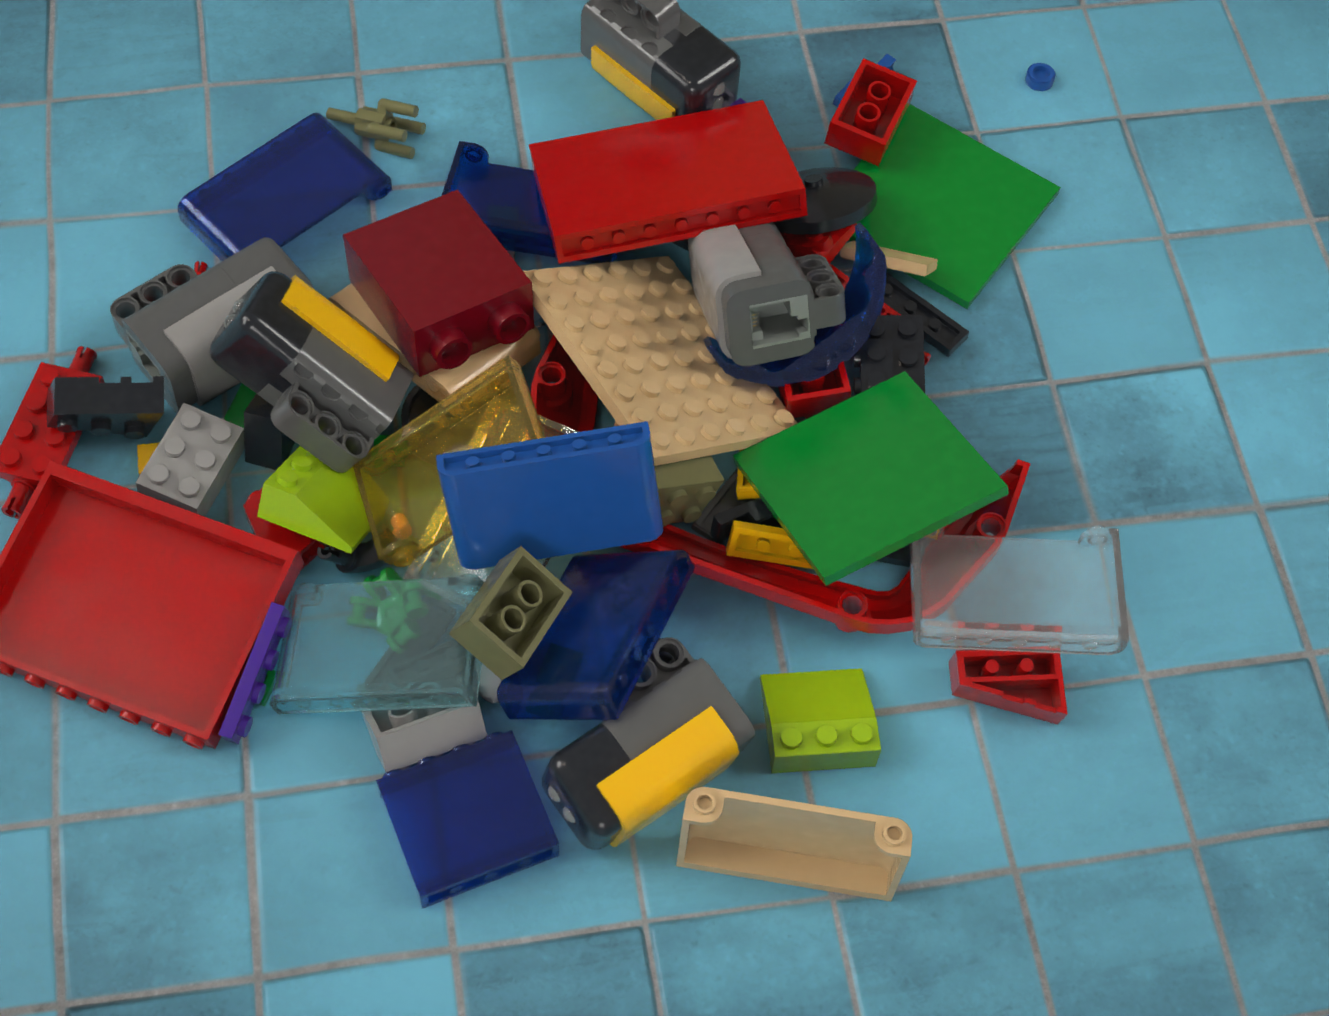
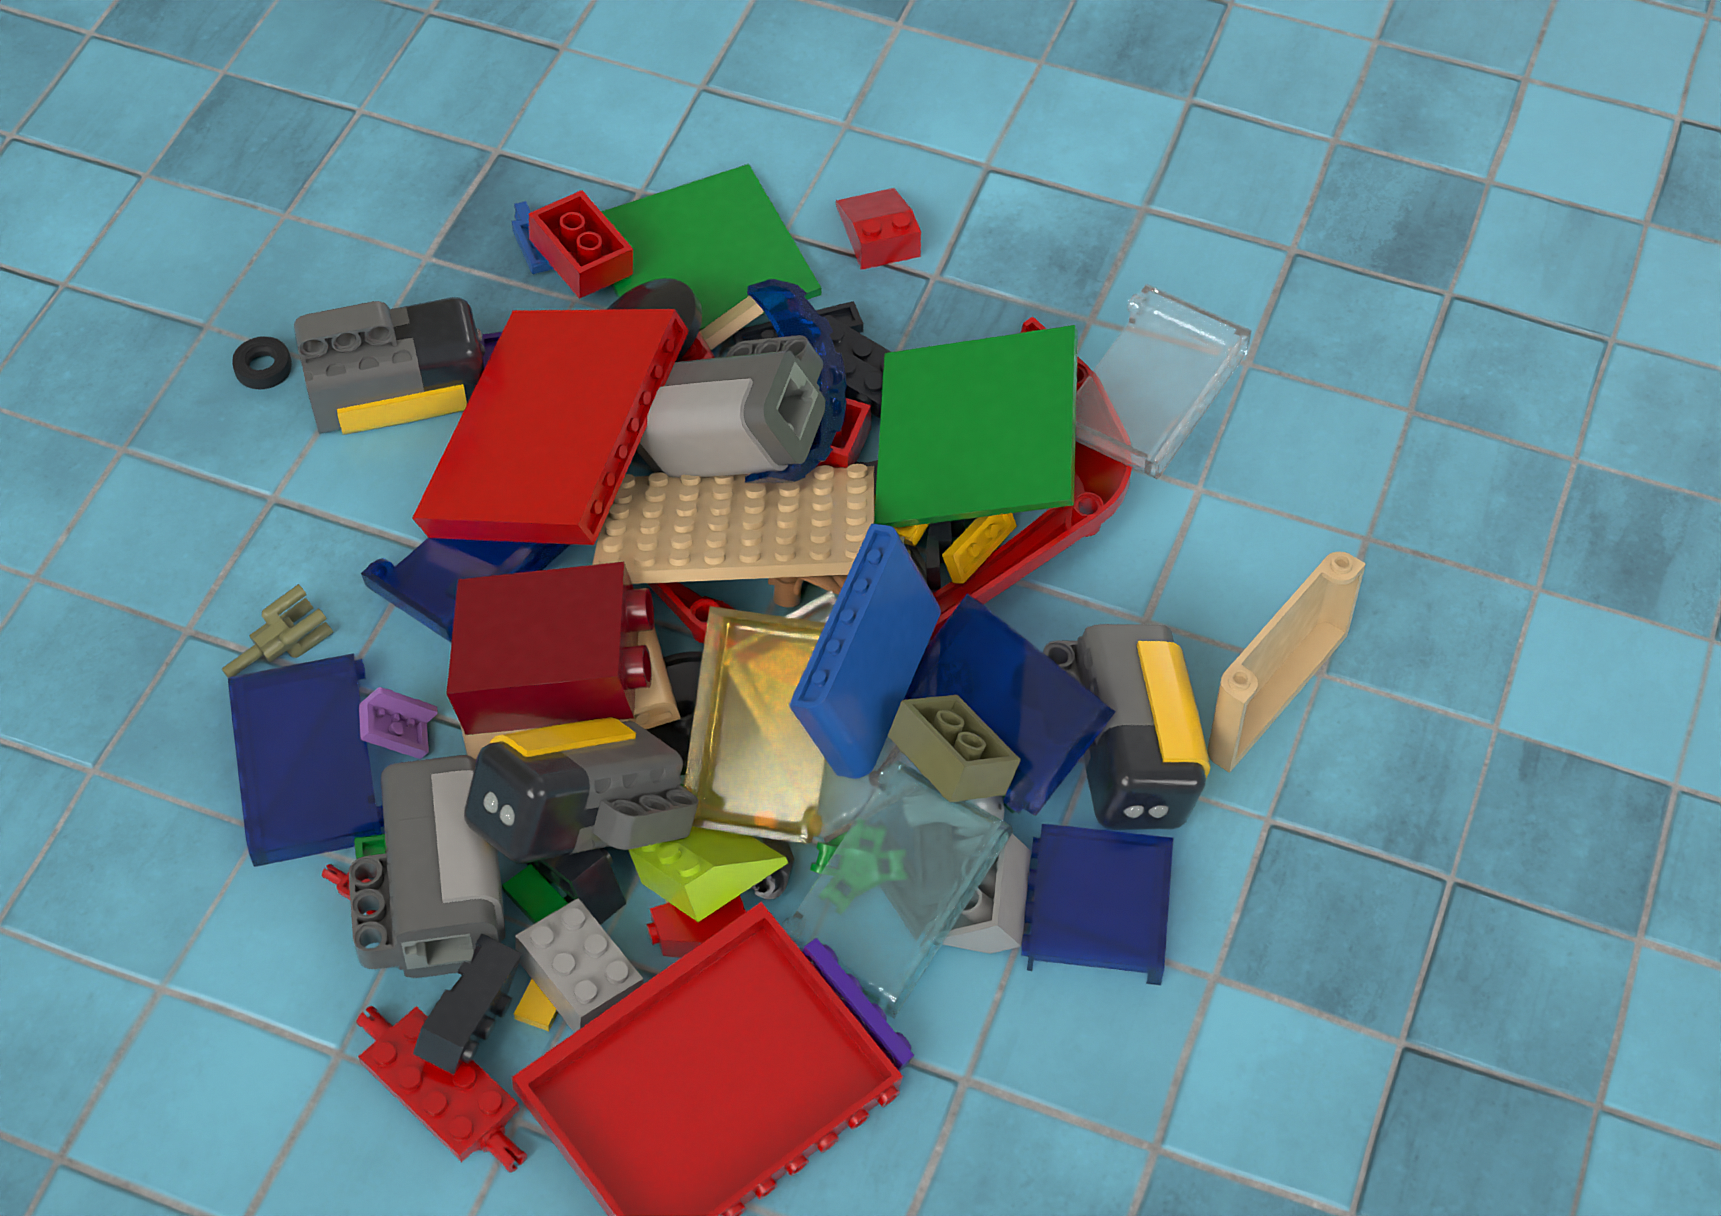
camera: 55 degrees left, 5 degrees down
(328, 227) = (396, 722): none -> medium lavender bracket
(819, 721) = (1161, 589): lime slope -> none
(1011, 681) = (1212, 446): red wedge -> none
(1040, 76) = (617, 116): blue tile -> none
(1067, 312) = (880, 228): none -> red slope

